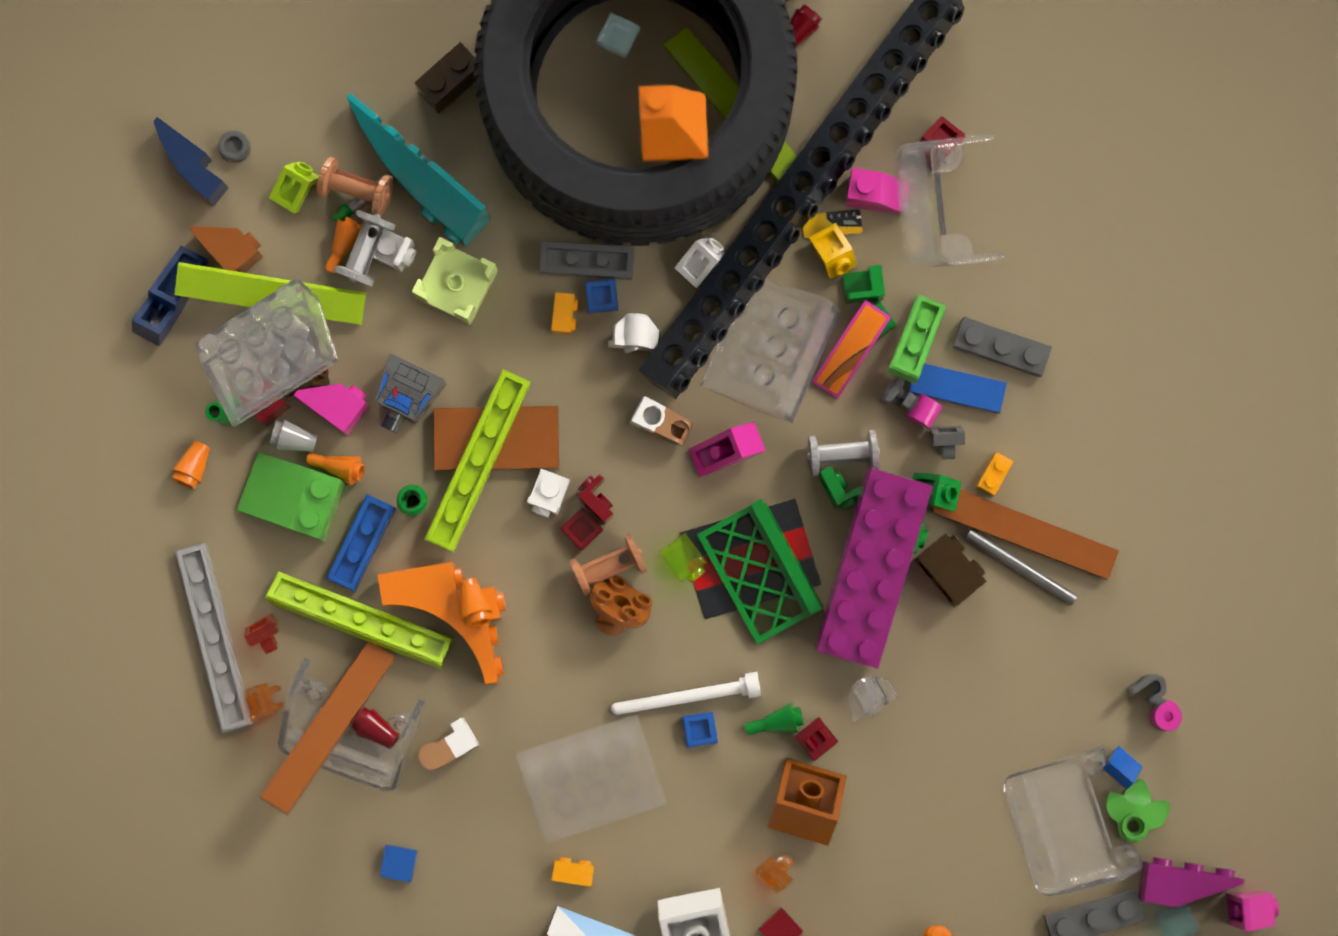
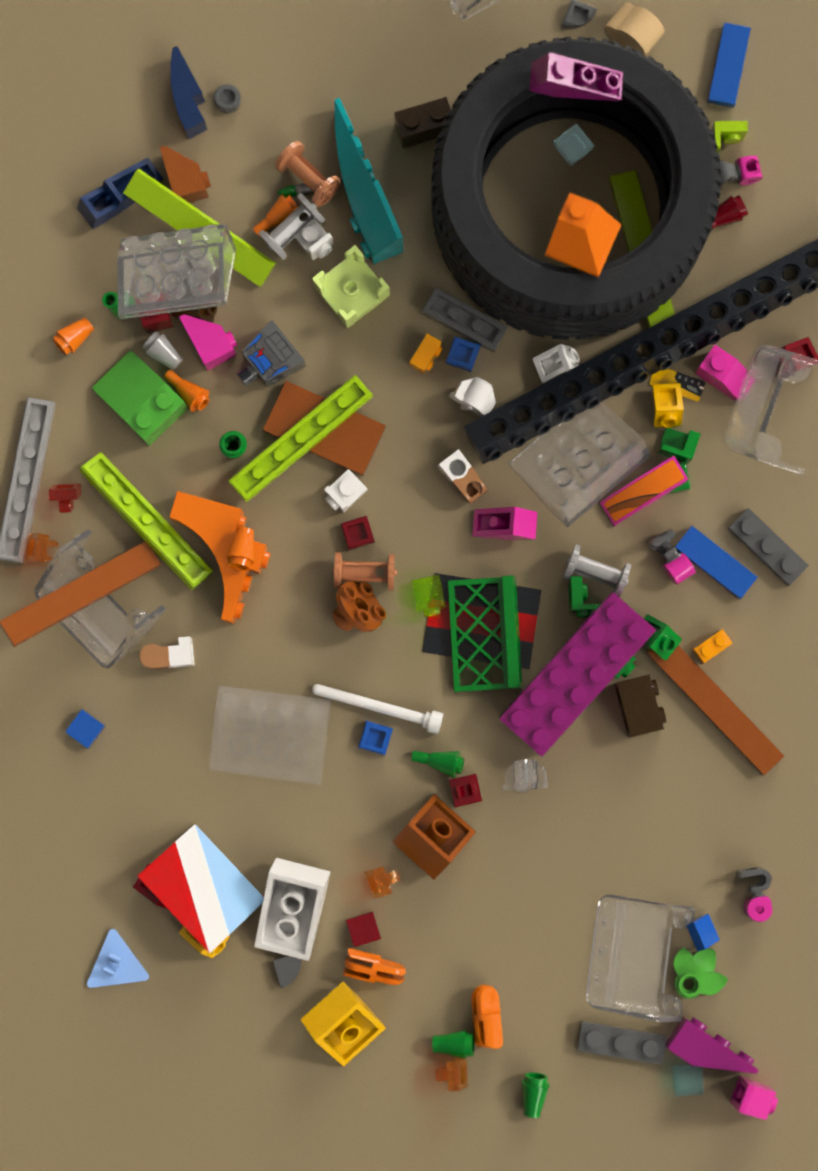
camera: 30 degrees right, 0 degrees up
(293, 185) = (259, 151): lime bracket -> none
(361, 543) = (177, 460): blue tile -> none
(373, 727) = (116, 611): dark red cone -> none
(573, 872) = (220, 803): light orange piece -> none
(599, 504) = (380, 519): dark red bracket -> none
(916, 339) = (700, 507): bright green tile -> none
(947, 438) = (687, 598): dark grey tile -> none
(1021, 567) = (698, 731): flat silver bar -> none

